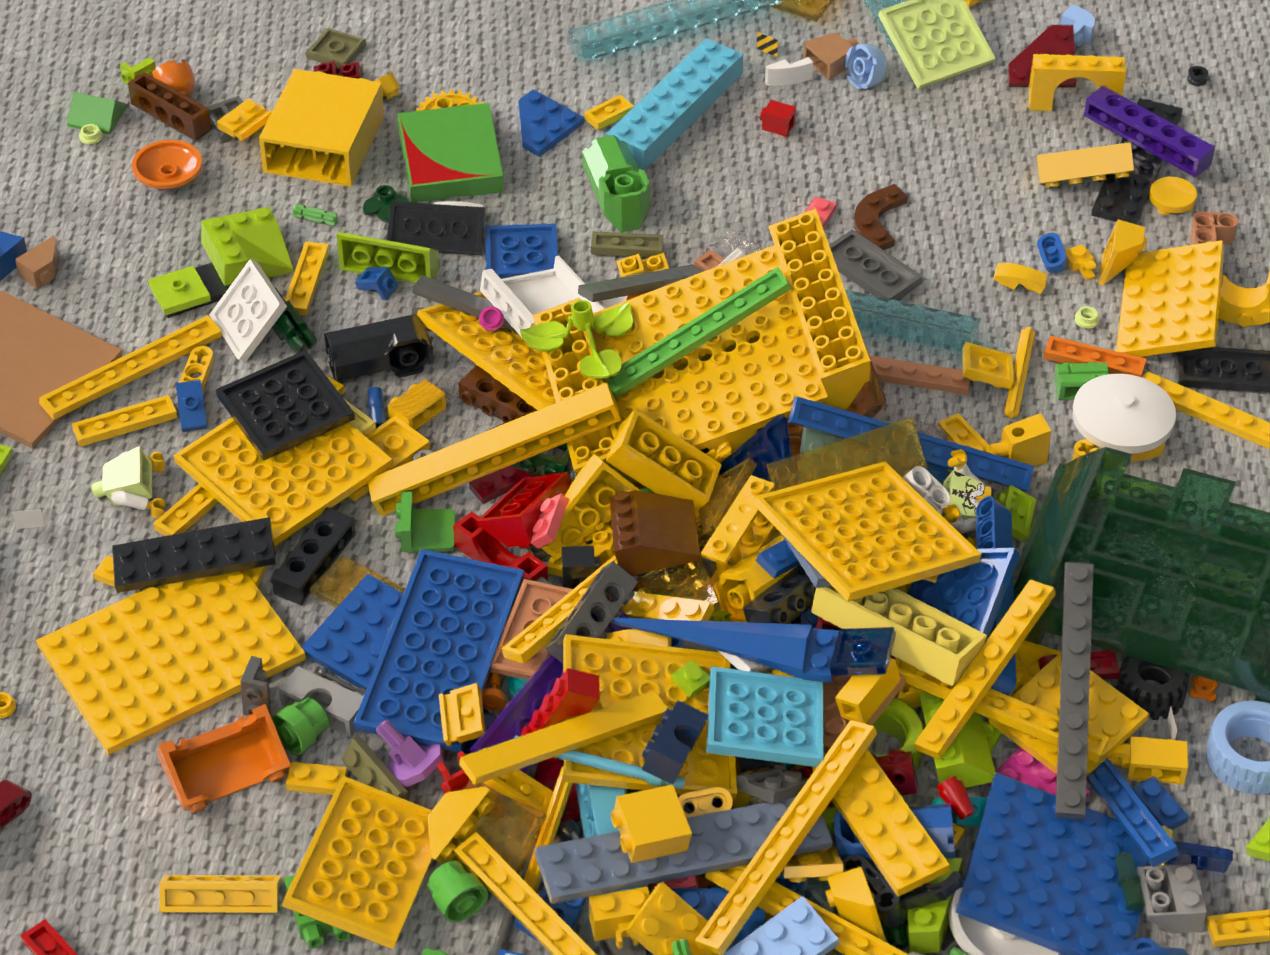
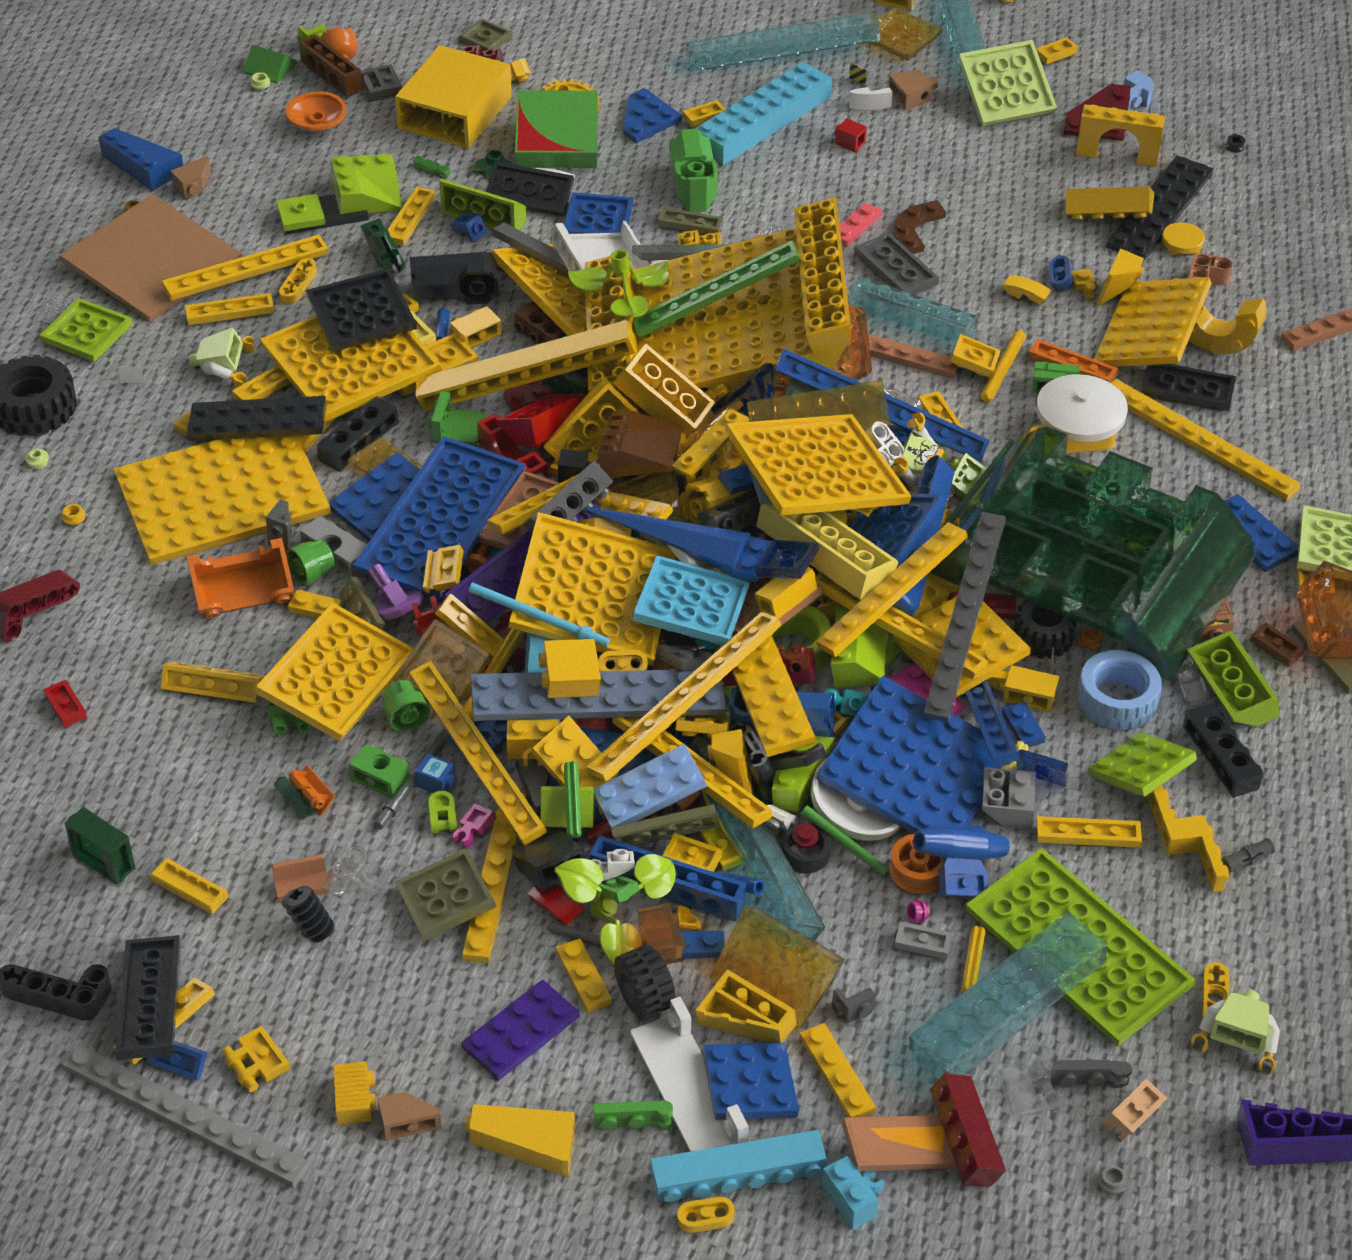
camera: 10 degrees right, 0 degrees up
(191, 405) = (287, 304): blue plate -> none
(244, 120) = (389, 83): yellow plate -> none
(248, 310) = (351, 233): white plate -> none
(456, 819) = (416, 647): yellow slope -> none
(491, 318) = (553, 264): dark pink plate -> none
(549, 520) = (553, 431): coral plate -> none
(562, 737) = (513, 589): yellow tile -> none
(571, 696) = (527, 559): red arch -> none
(673, 741) = (599, 612): dark blue arch -> none
(691, 678) = (637, 563): lime plate -> none
(865, 65) = (939, 100): light blue cylinder -> none
(954, 793) = (841, 685): red cone -> none
(1025, 441) = (988, 420): yellow torso -> none
(1087, 317) = (1076, 329): yellowish green plate -> none
(1129, 881) = (974, 777): clear green axle -> none
(1149, 131) = (1174, 182): dark purple brick -> none

